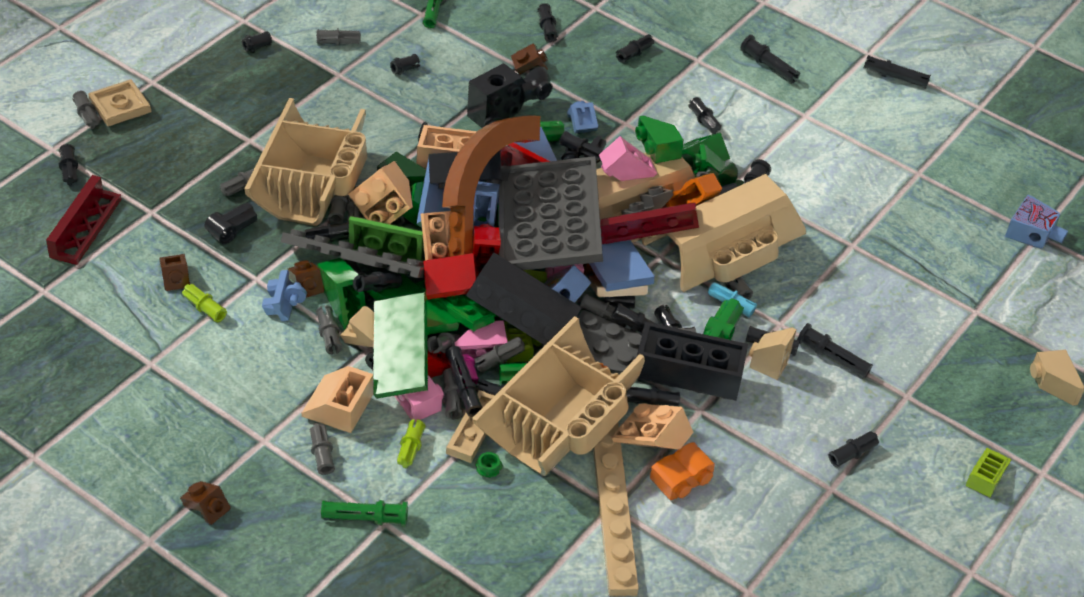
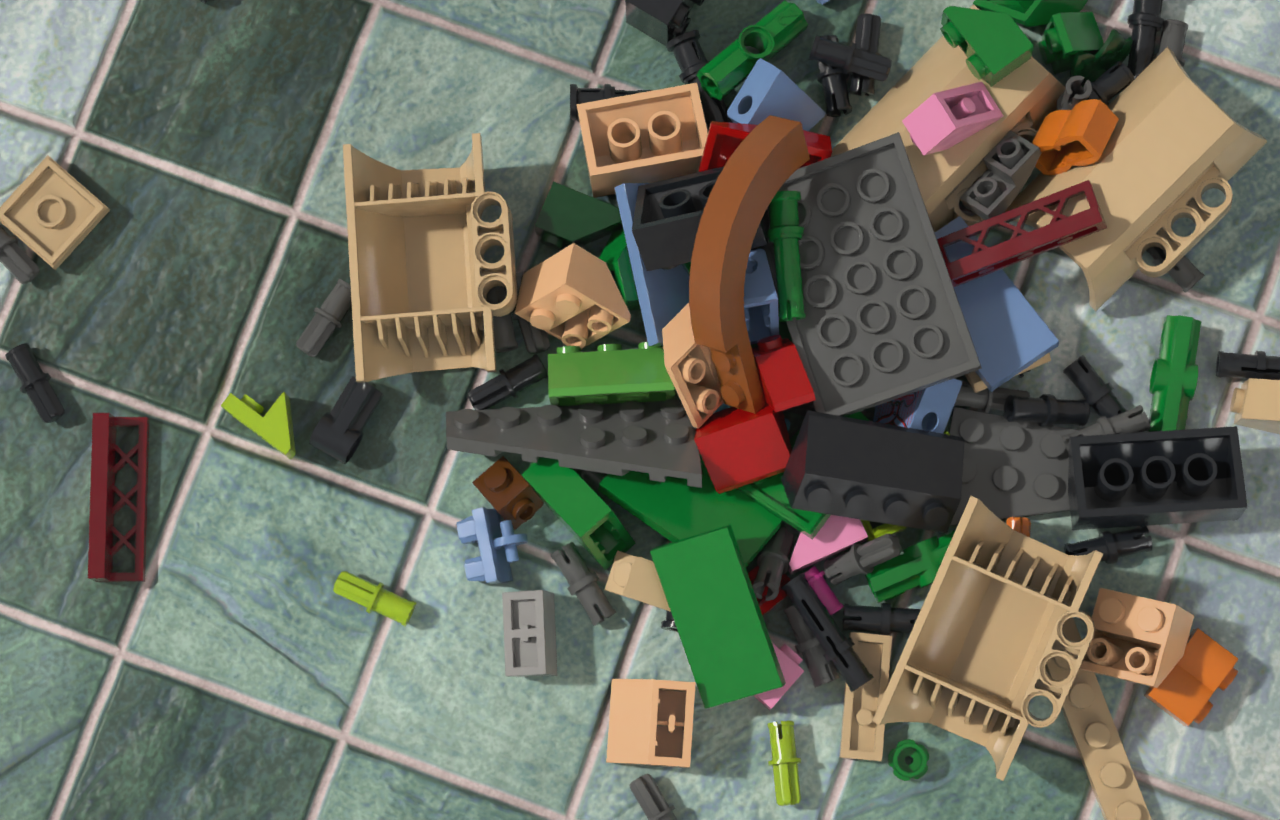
camera: 10 degrees left, 35 degrees up
(174, 272) = (302, 551): reddish brown bracket -> none
(186, 212) = (274, 427): none -> lime slope
(286, 339) = (529, 633): none -> light grey hinge
(377, 281) = (635, 505): black pin -> none
(513, 181) = (785, 234): none -> green pin
(722, 293) = (1176, 302): medium azure axle -> none

